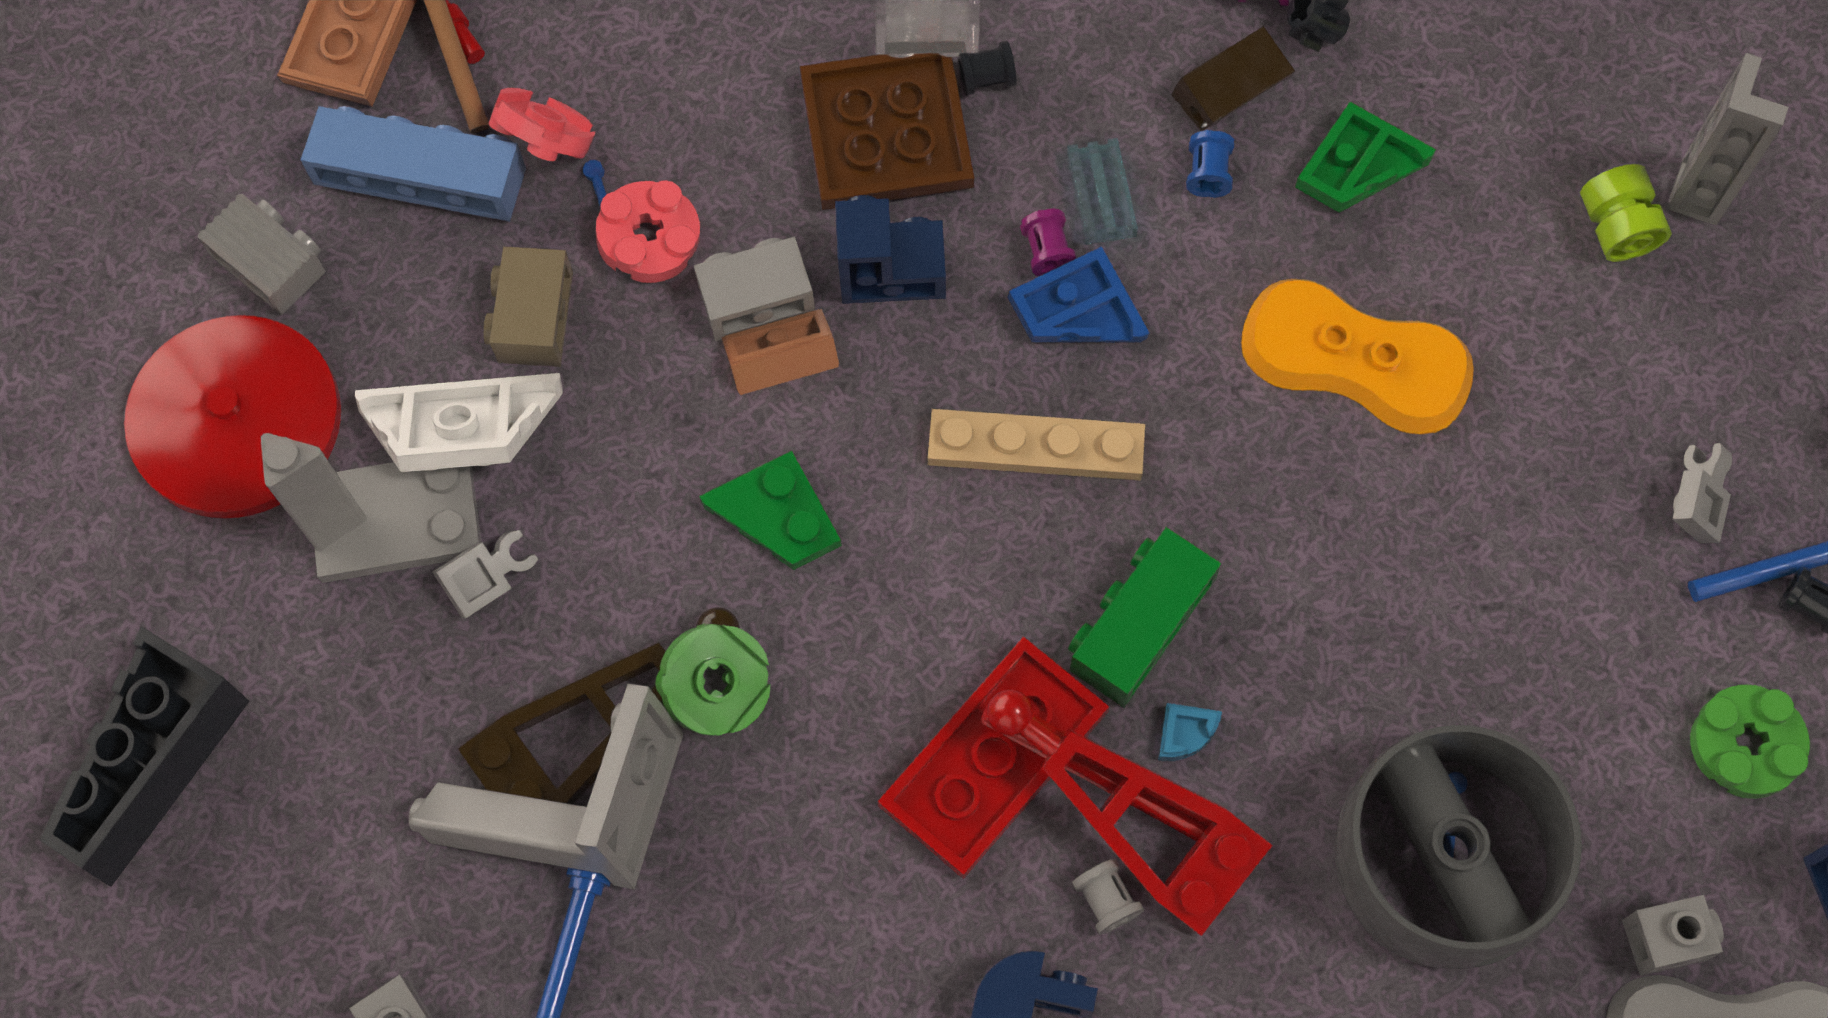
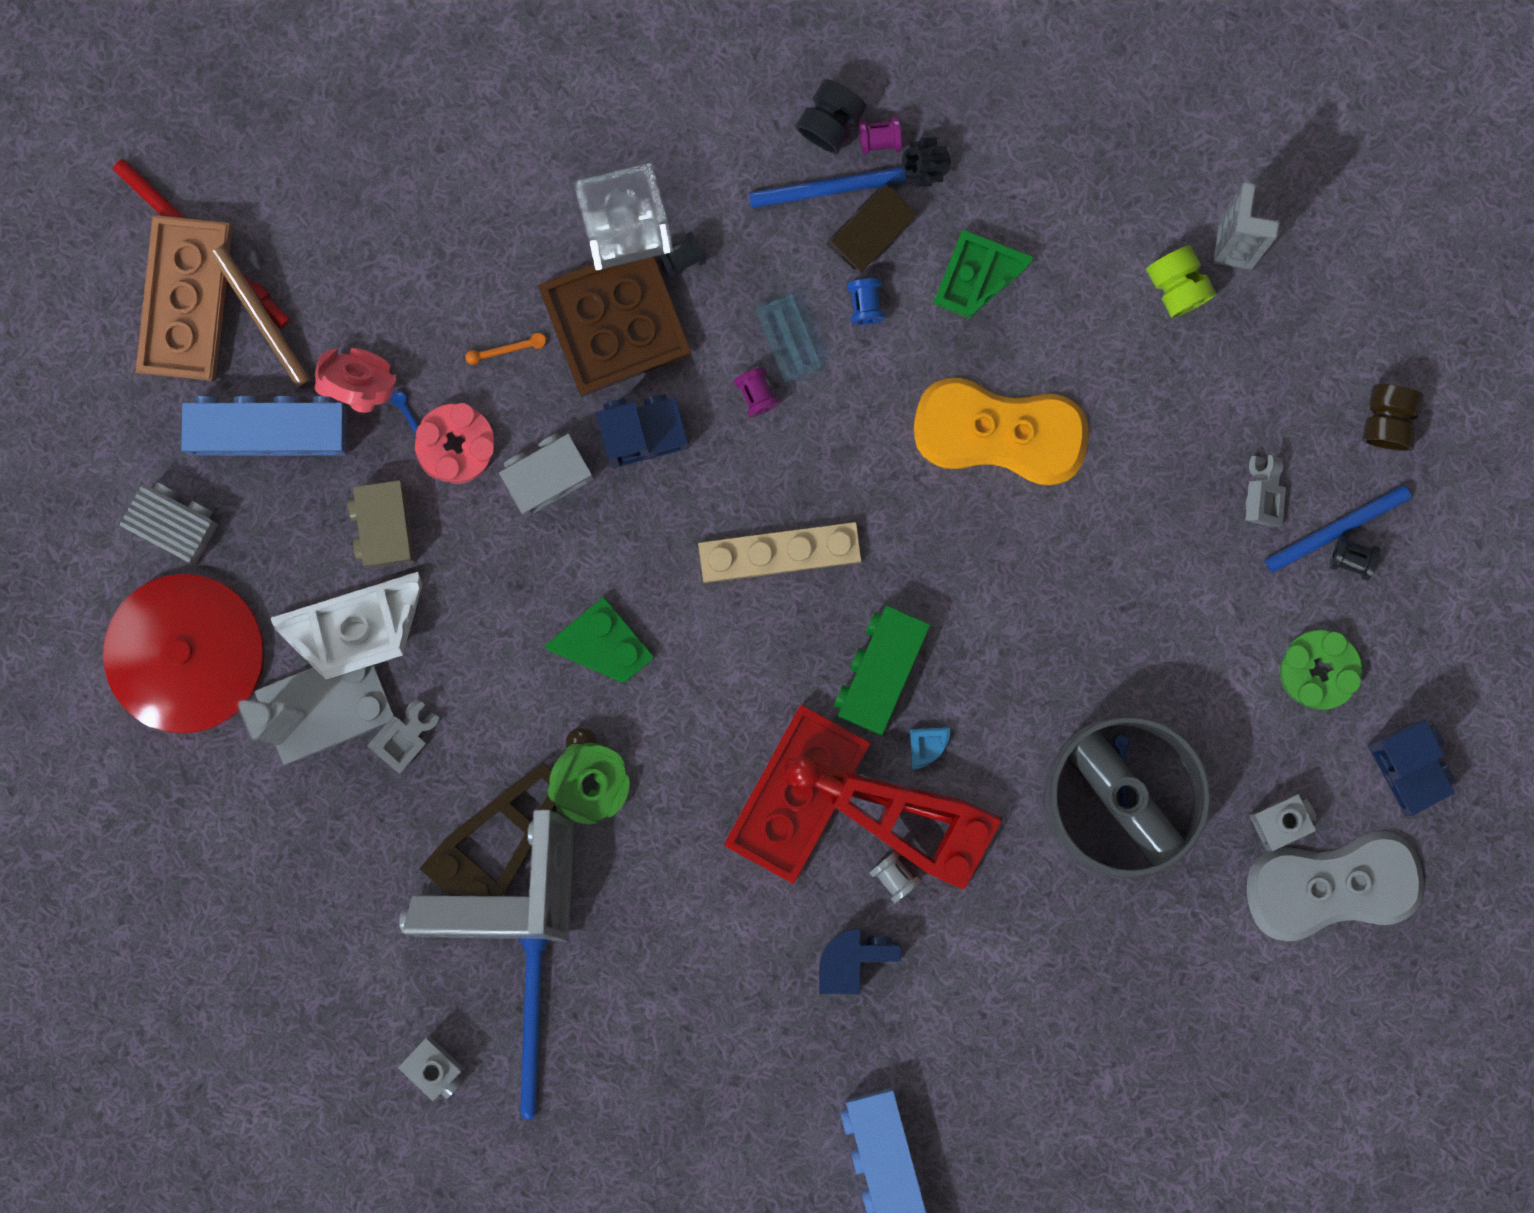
camera: 10 degrees left, 15 degrees up
(141, 756) = (200, 923): black wedge -> none
(780, 351) = (575, 517): nougat slope -> none
(783, 137) = (536, 341): none -> orange hinge
(1078, 304) = (789, 437): blue wing -> none
(1181, 29) = (827, 187): none -> blue bar

